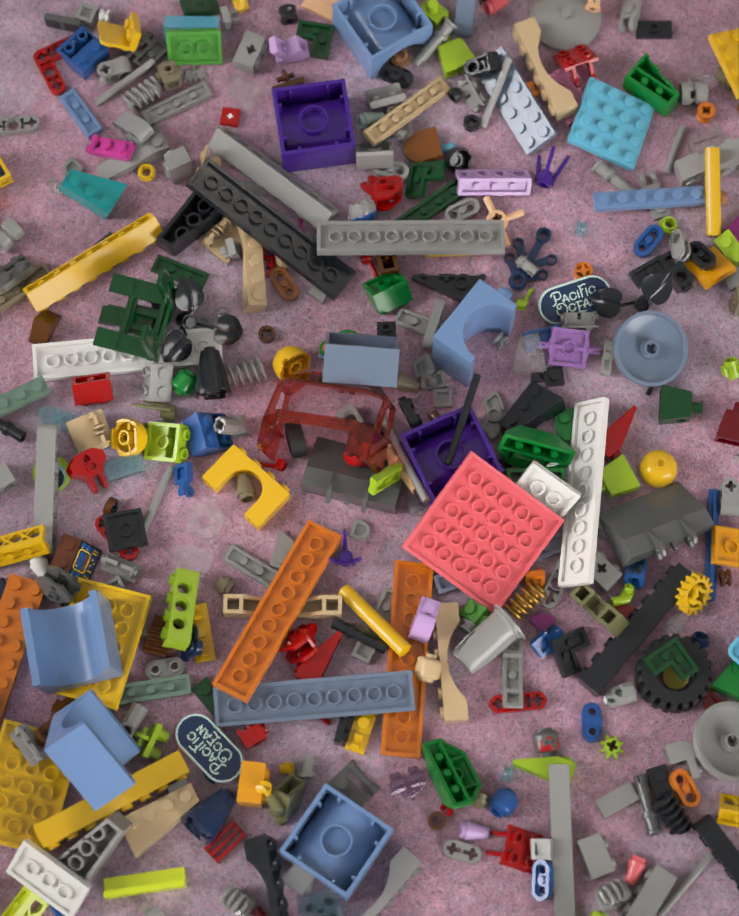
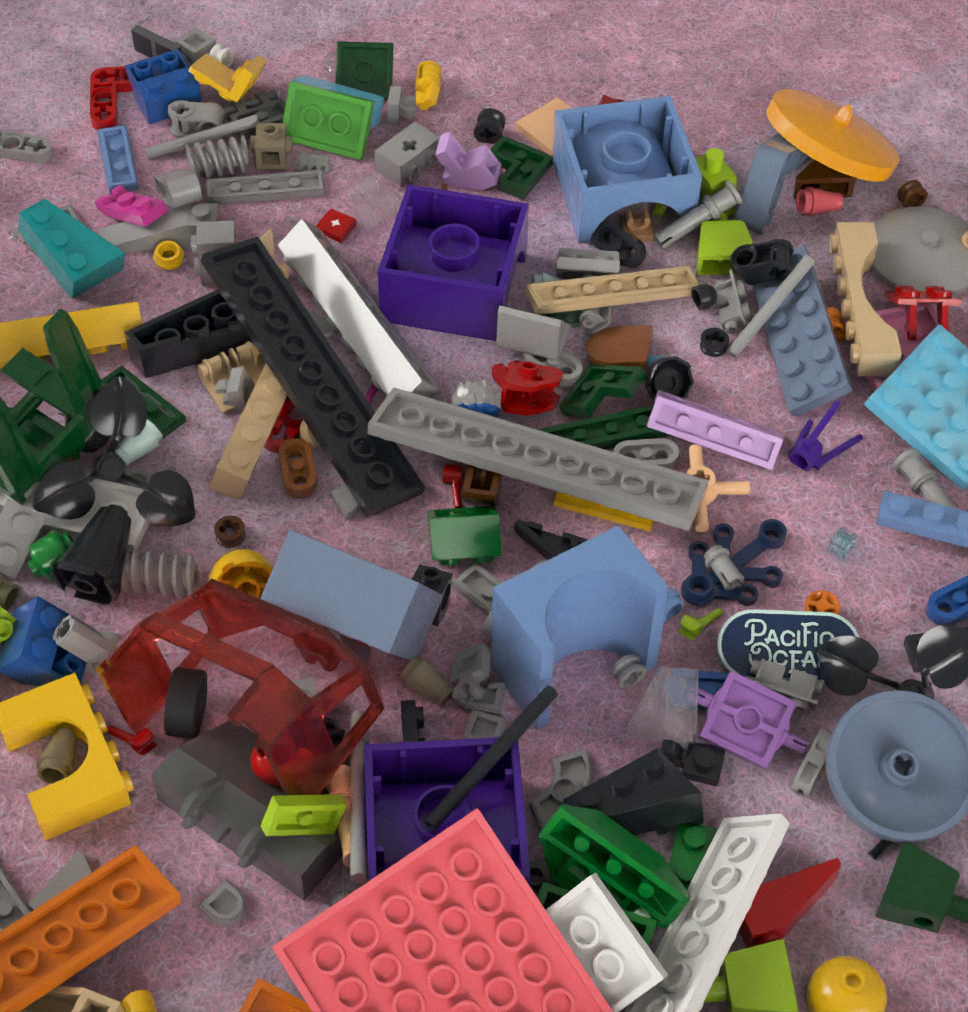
camera: 20 degrees right, 20 degrees down
(345, 557) = (171, 940): dark purple plant -> none

